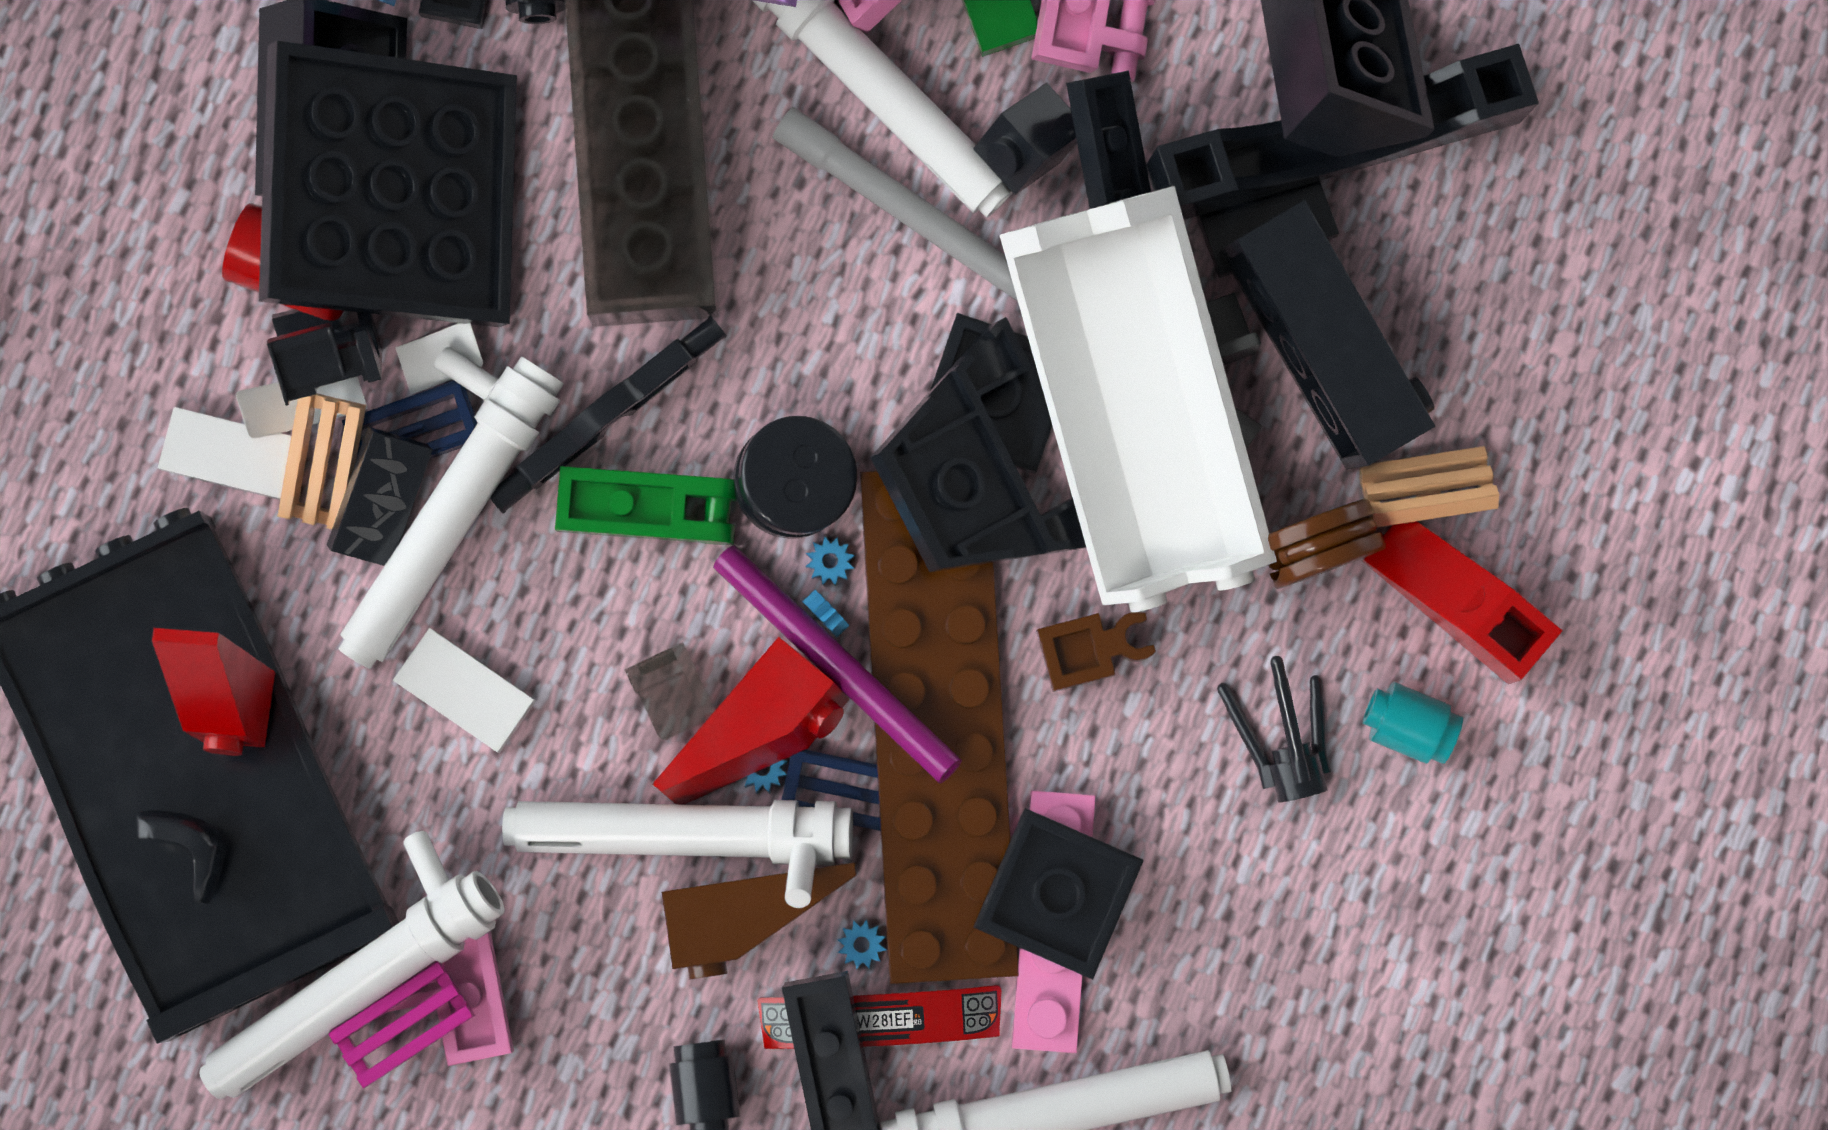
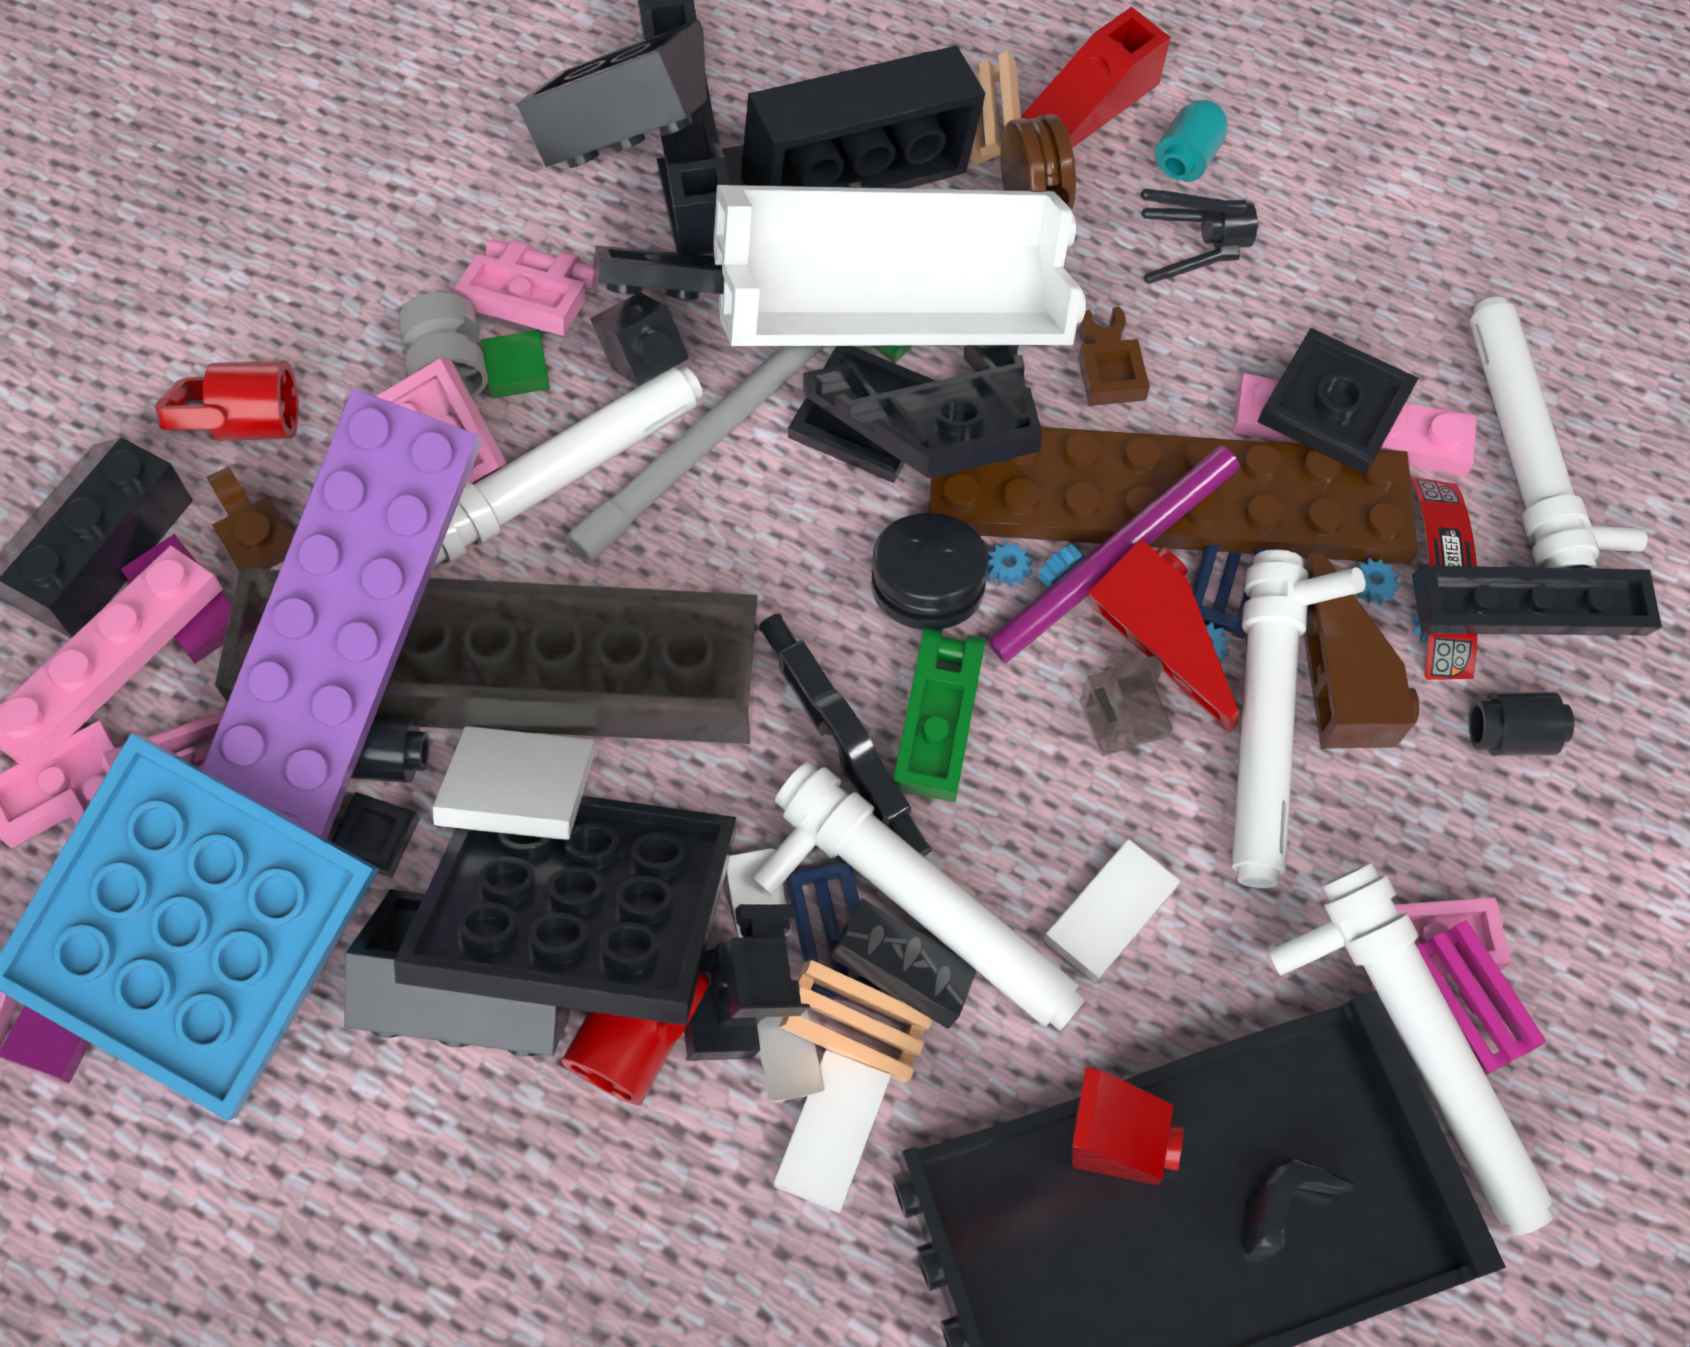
camera: 85 degrees left, 20 degrees down
(510, 111) = (514, 783): none -> white tile

